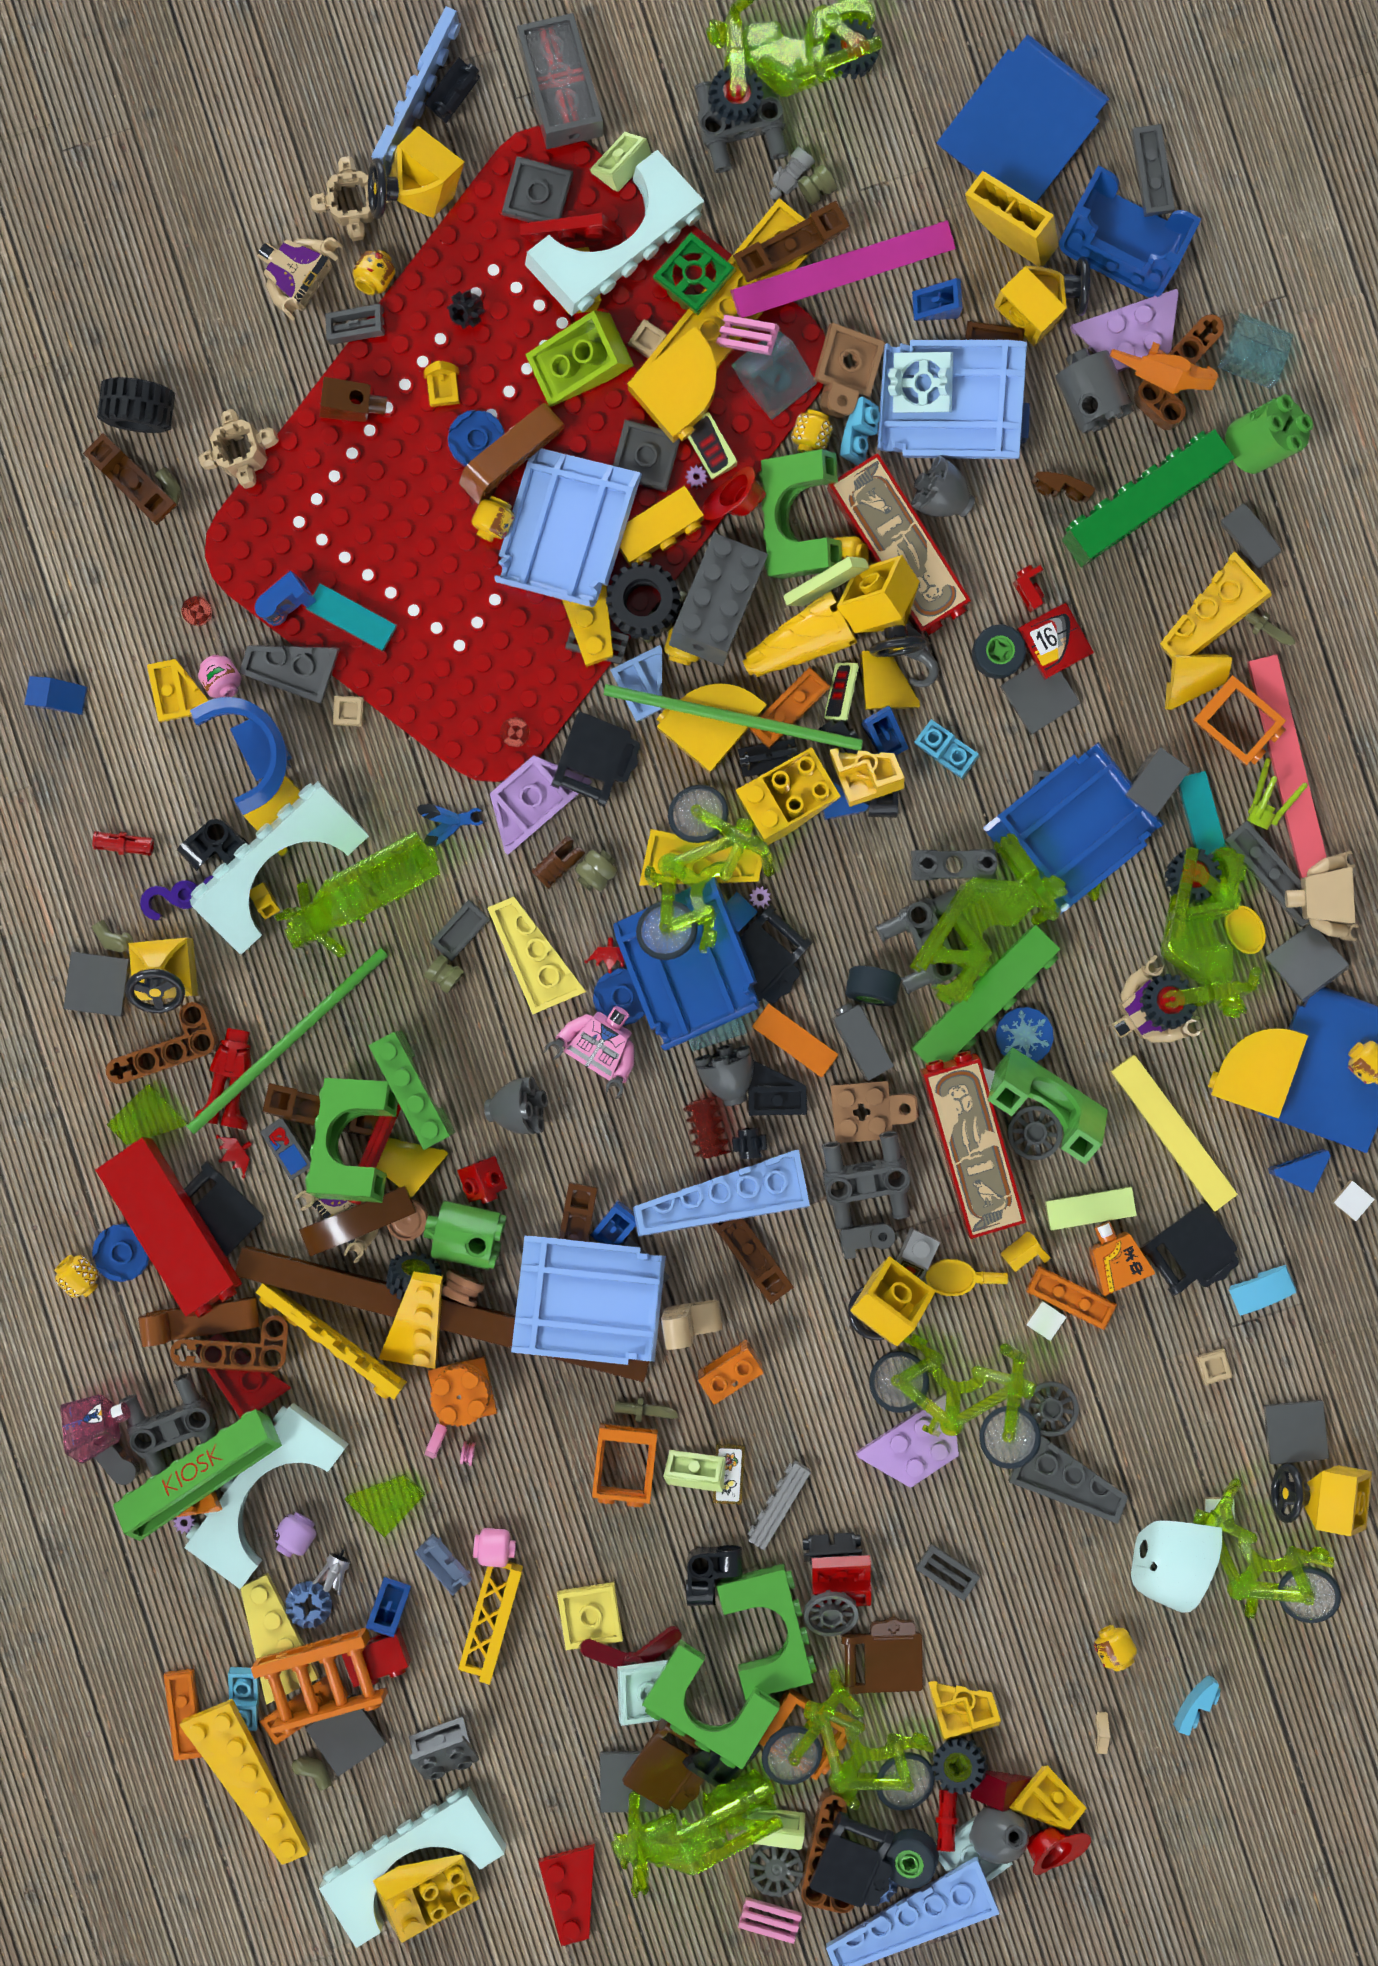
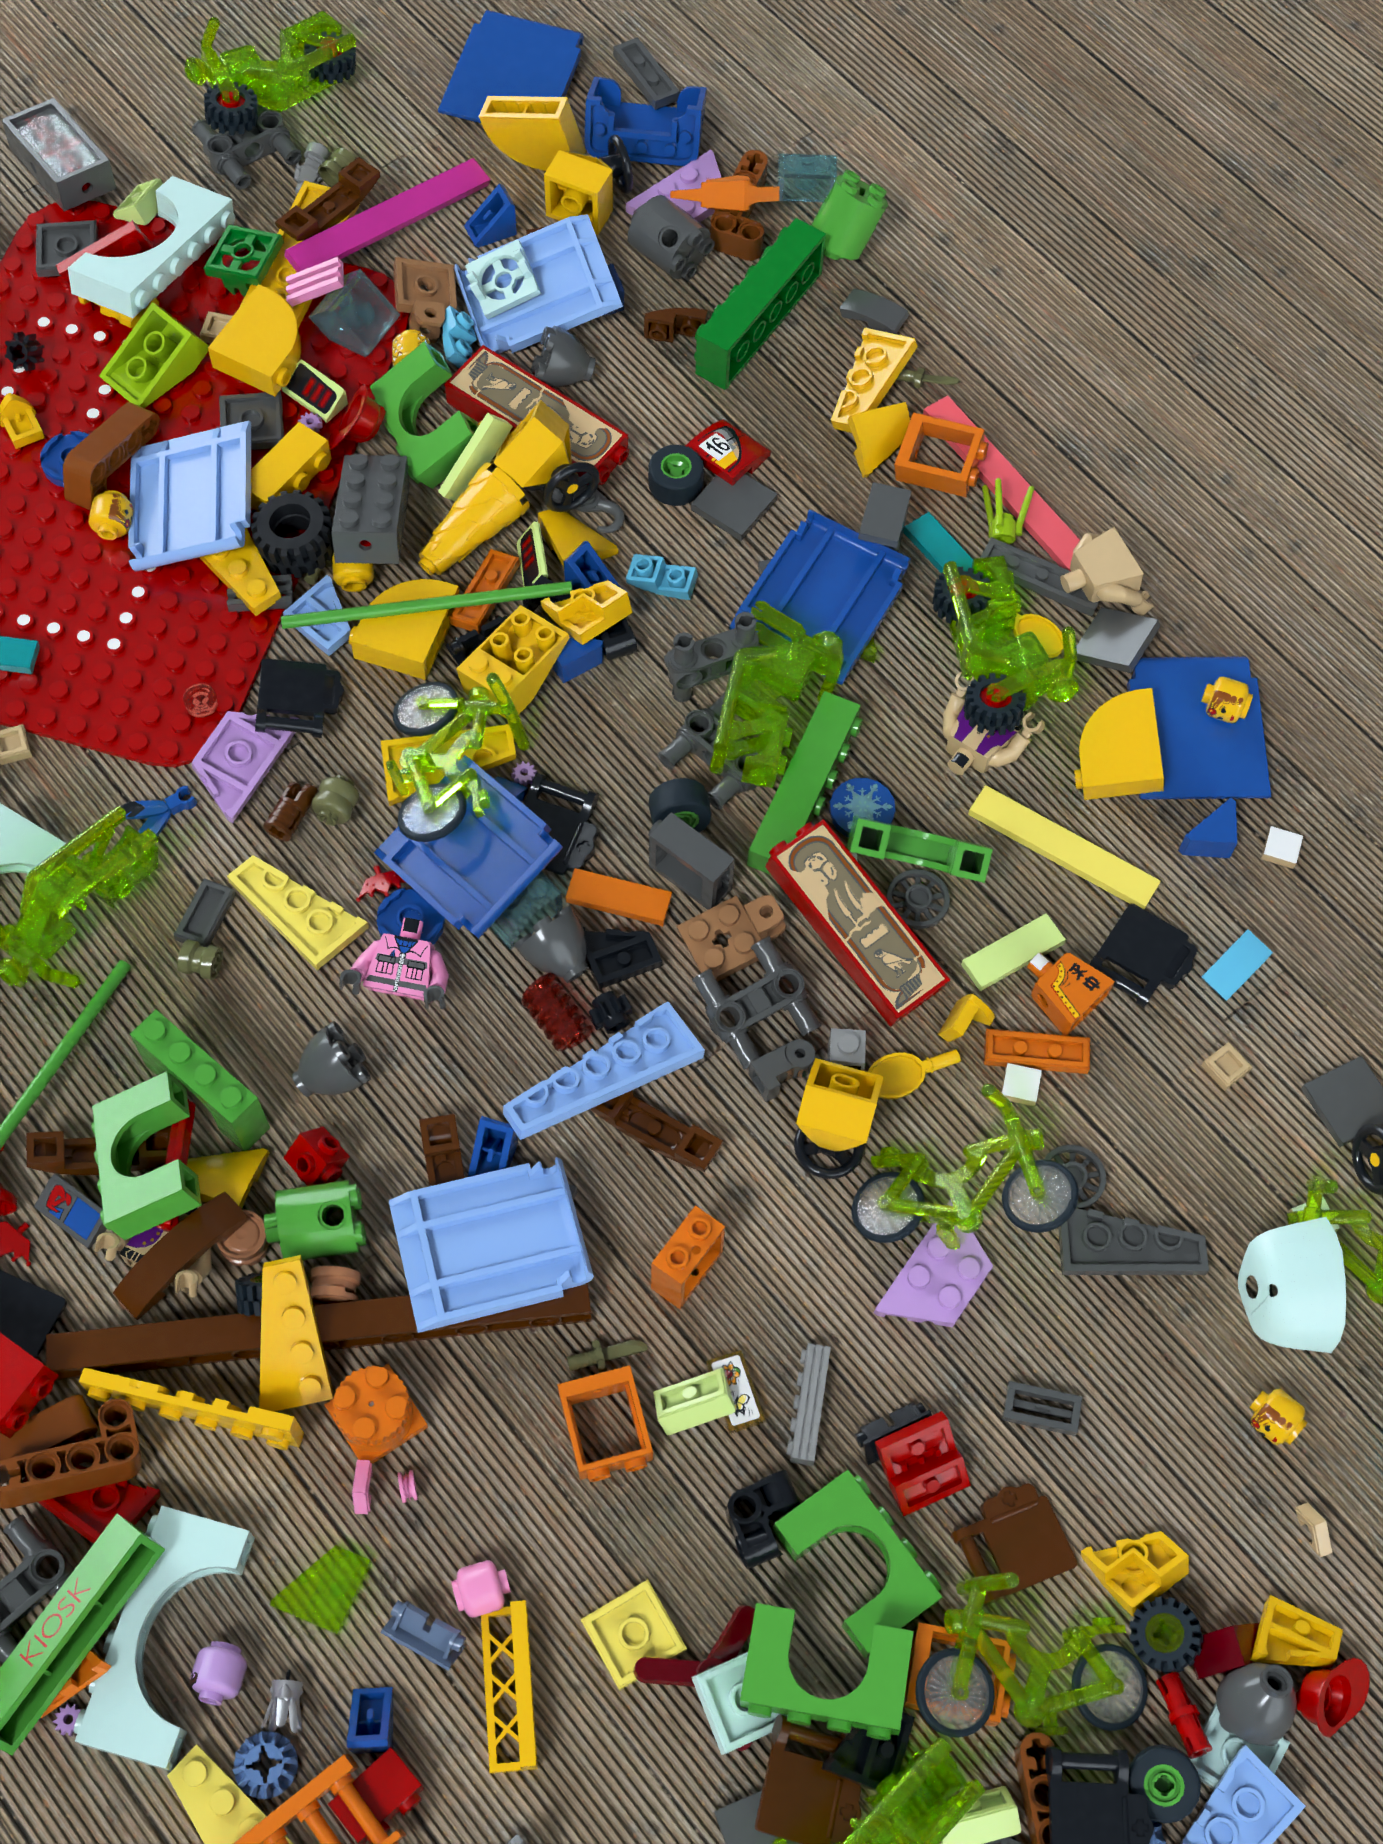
camera: 25 degrees left, 25 degrees down
(690, 1319) = (614, 1222): tan beam -> none
(830, 1613) = (926, 1507): dark grey wheel -> none
(1029, 593) = (681, 415): red bracket -> none

